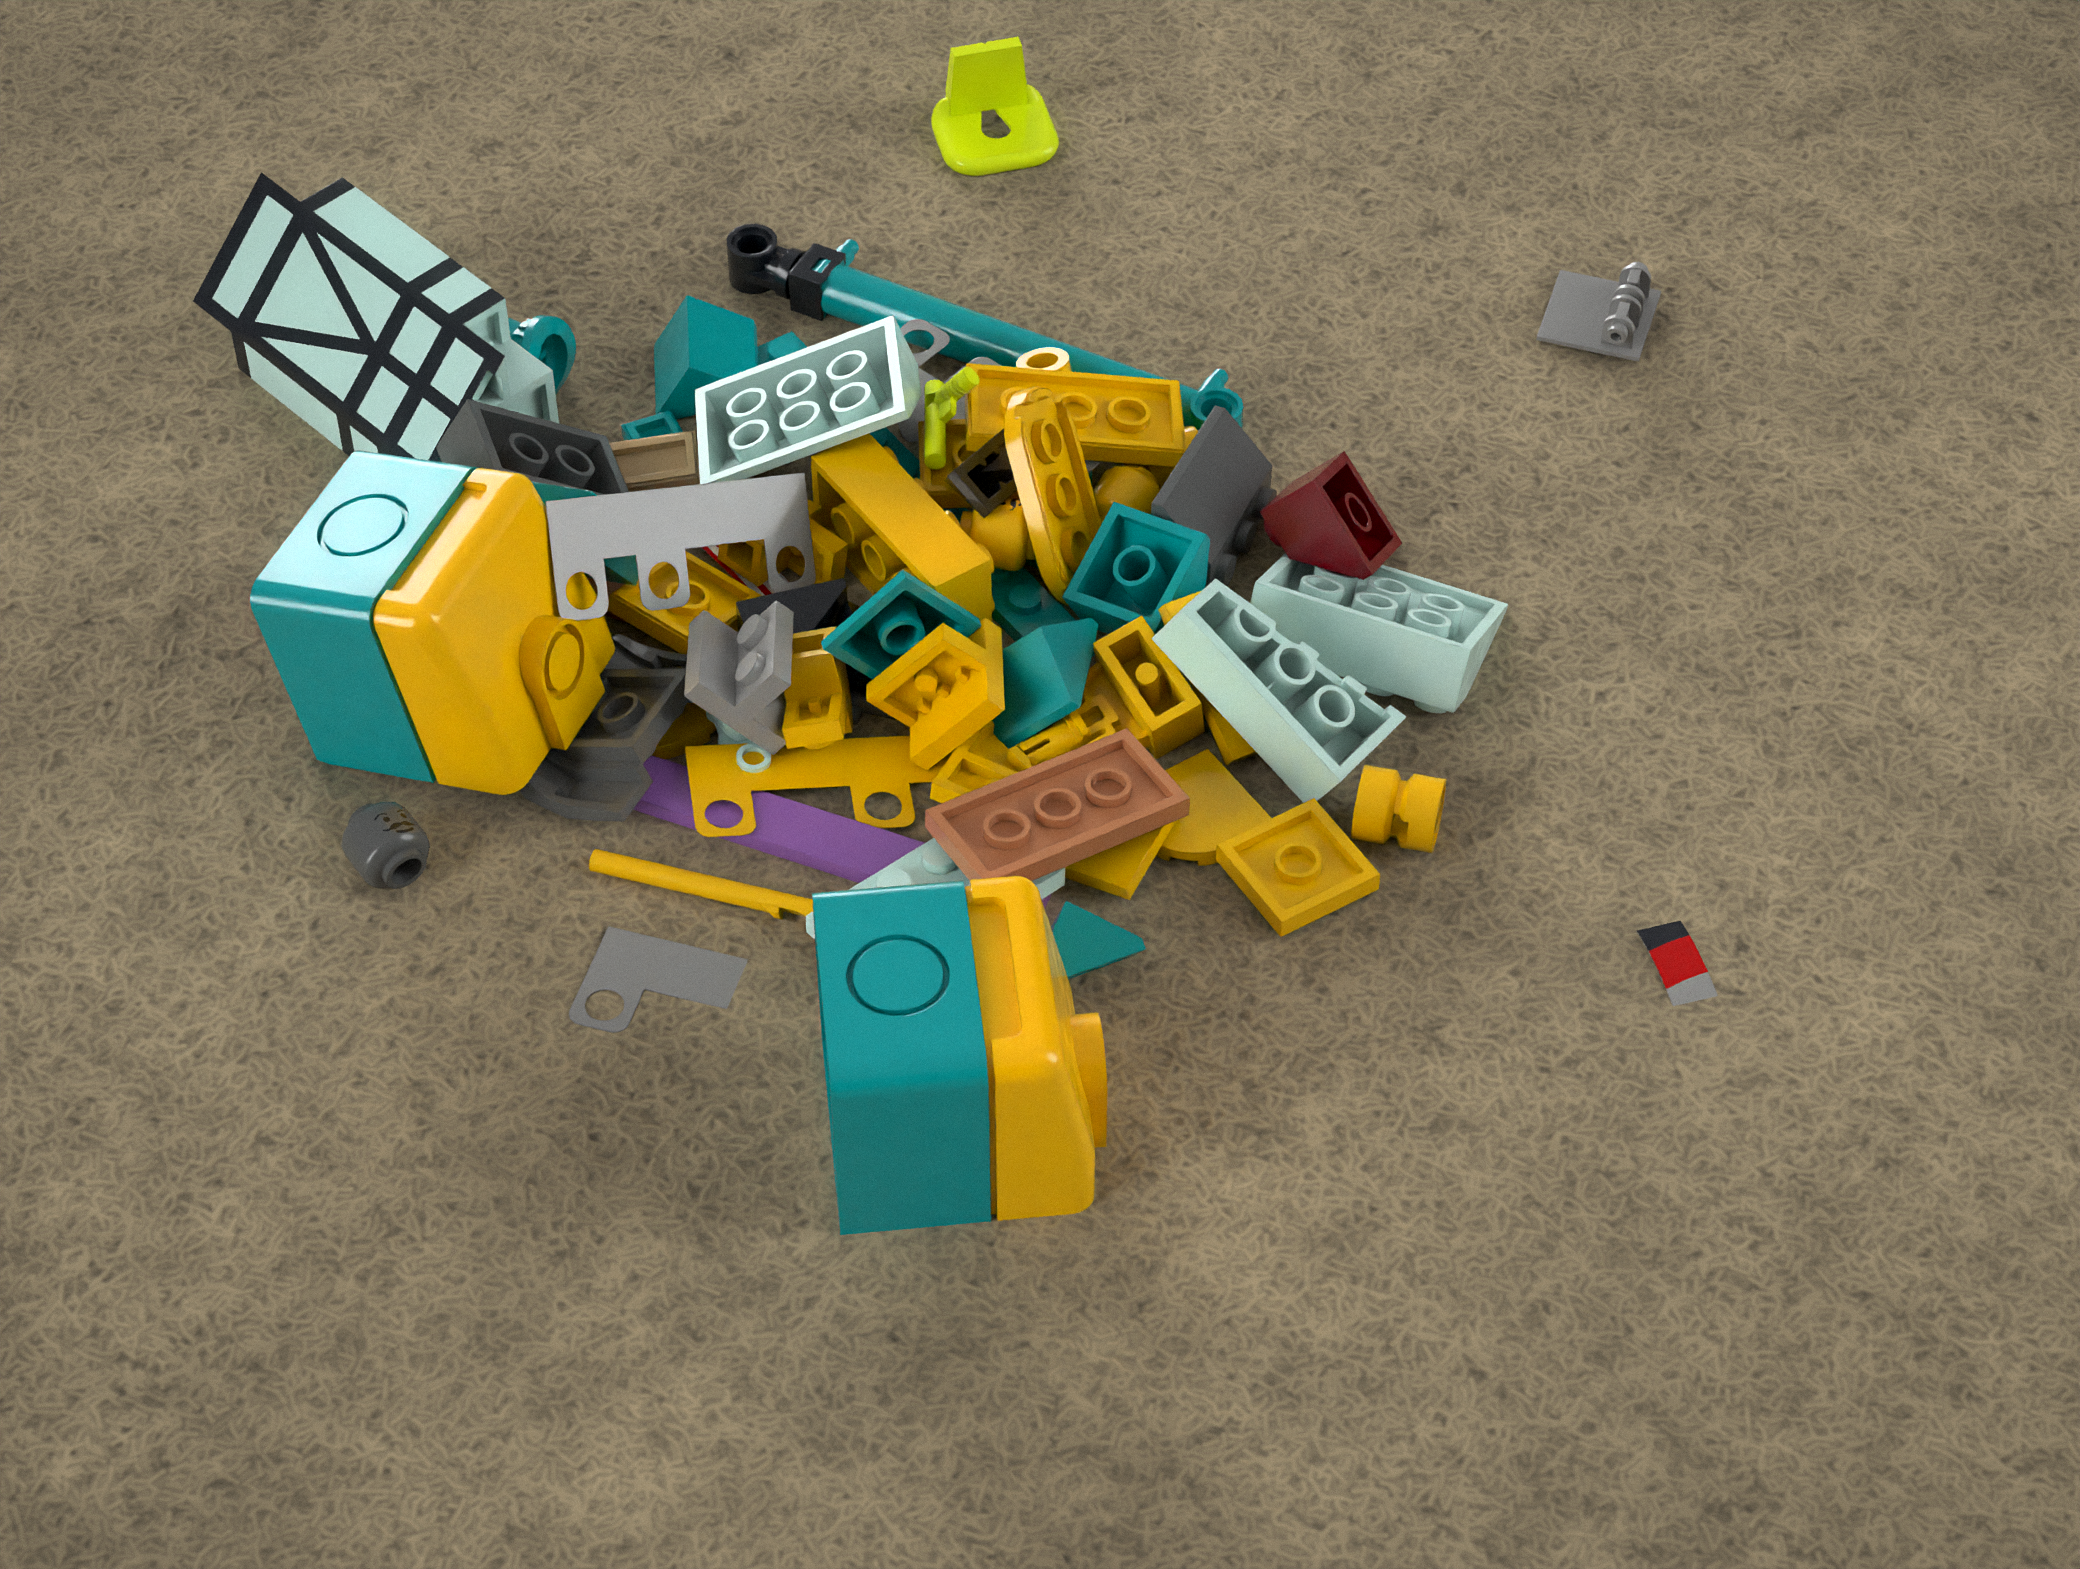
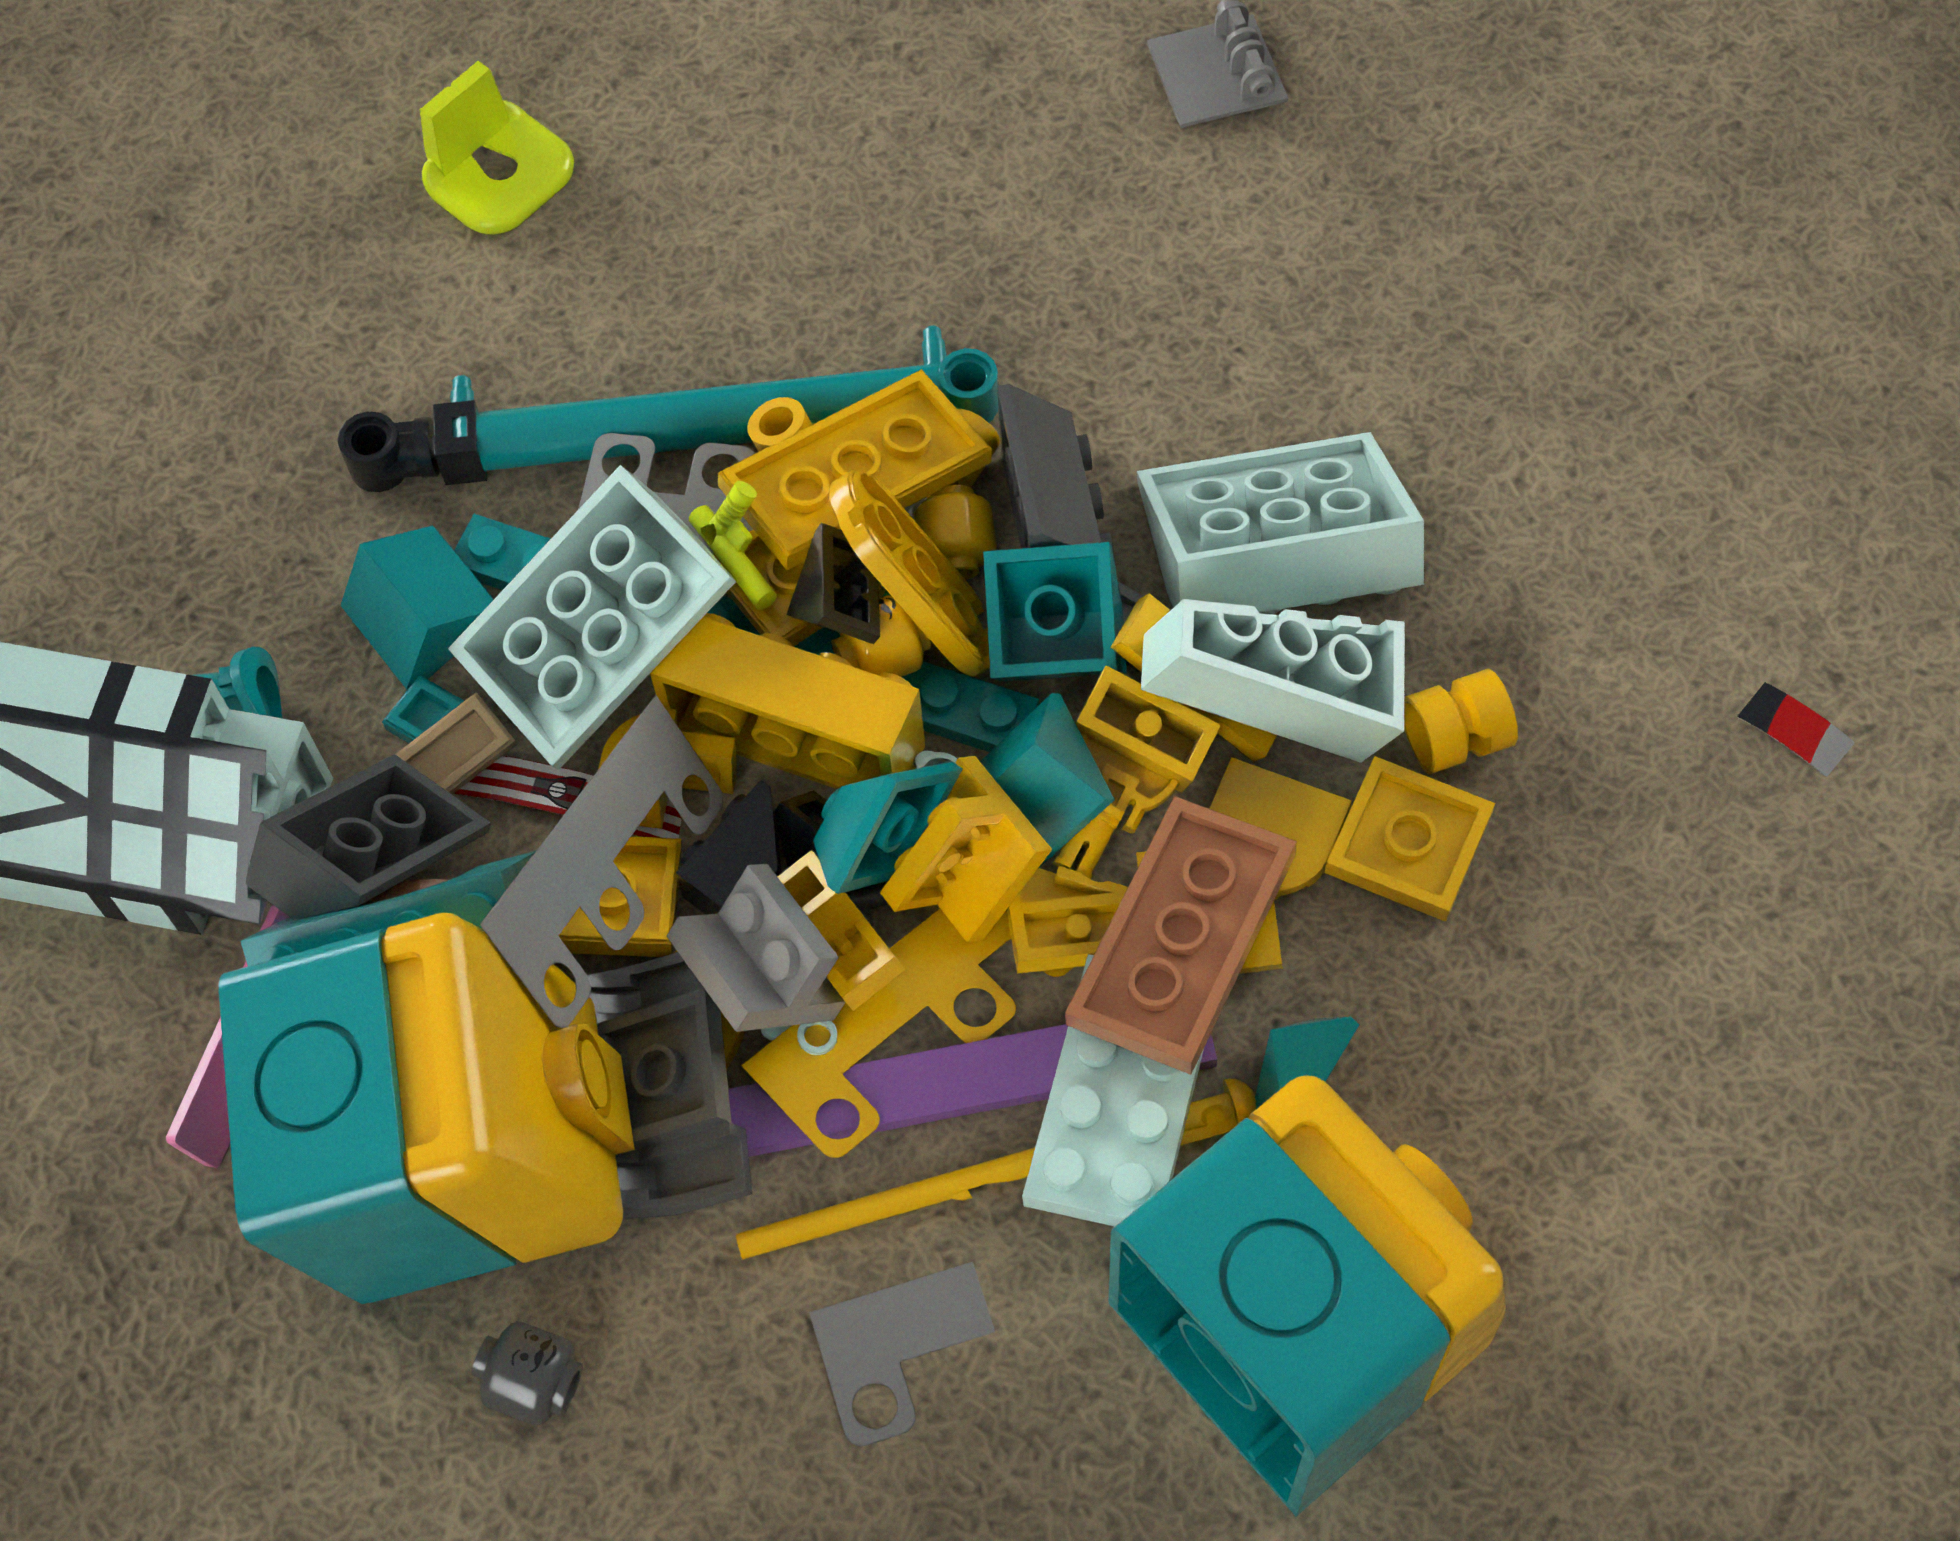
camera: 30 degrees left, 15 degrees up
(1331, 521) = (1168, 443): dark red slope -> none

